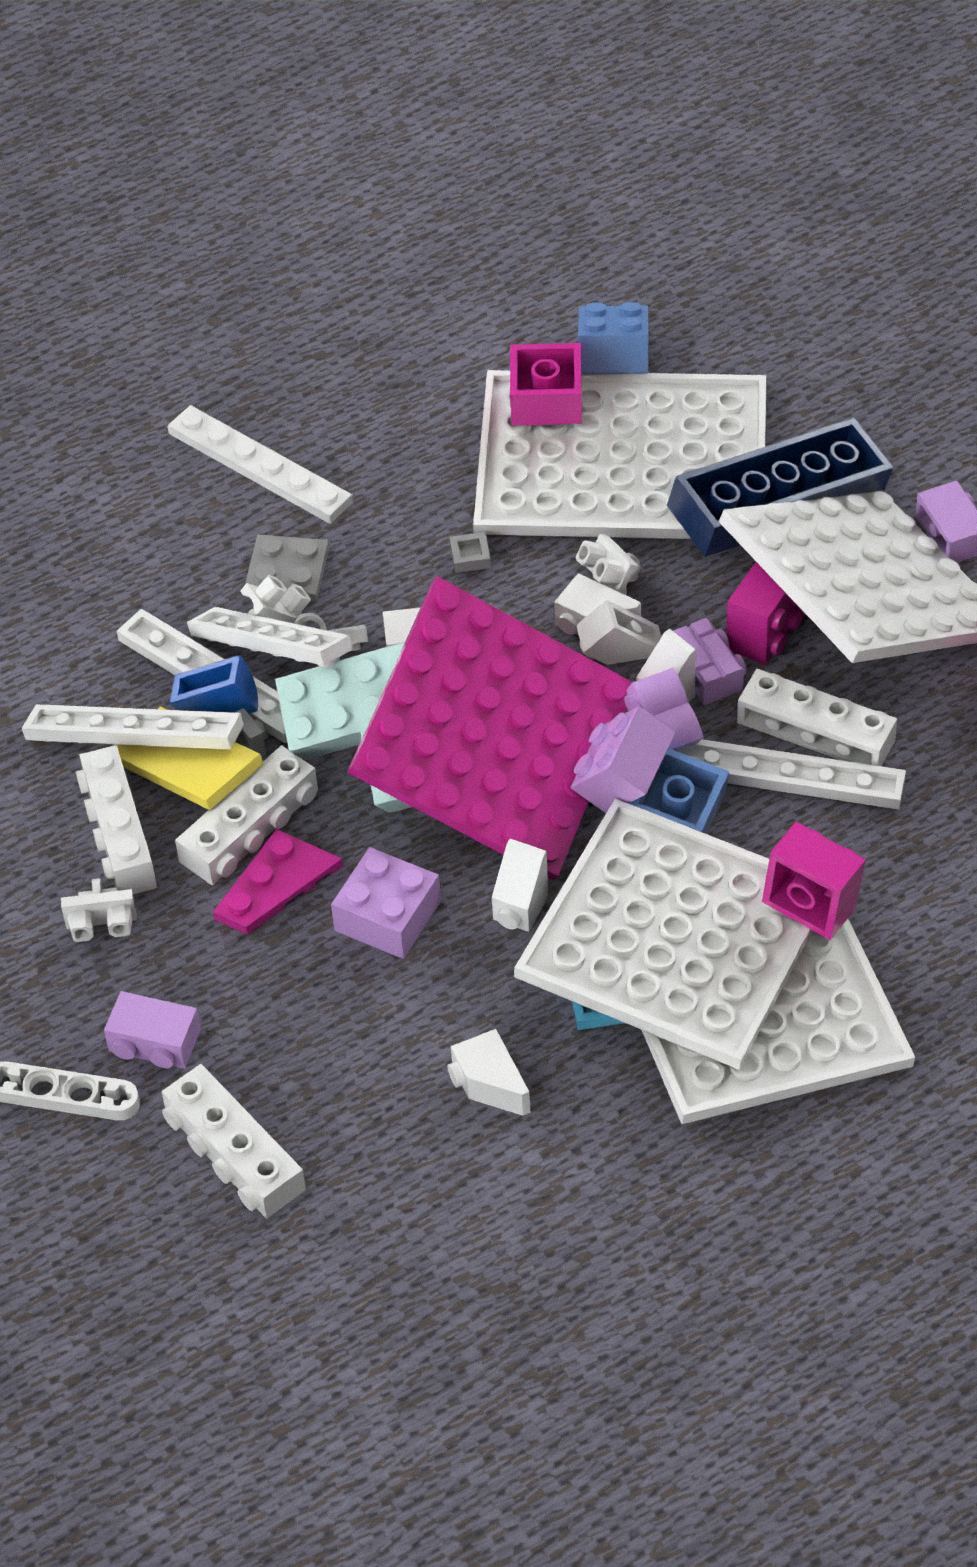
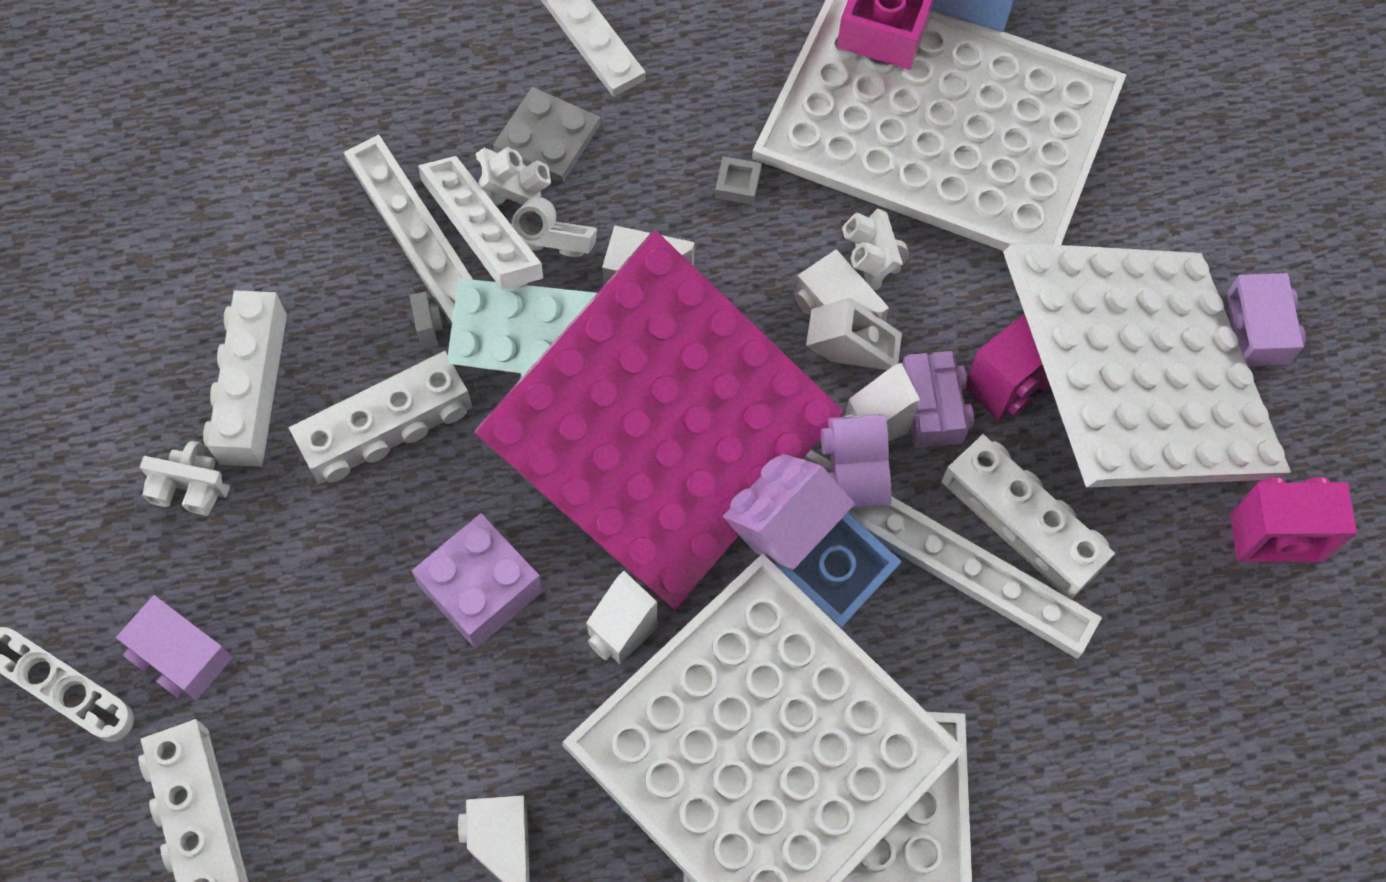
camera: 15 degrees right, 15 degrees up
(133, 726) = (308, 275): white plate -> none
(193, 773) = (346, 329): light yellow tile -> none
(216, 688) = (404, 262): blue brick -> none
(272, 879) = (382, 501): dark pink wing -> none
(805, 467) = (1103, 209): dark blue brick -> none
(813, 880) = (939, 758): dark pink brick -> none

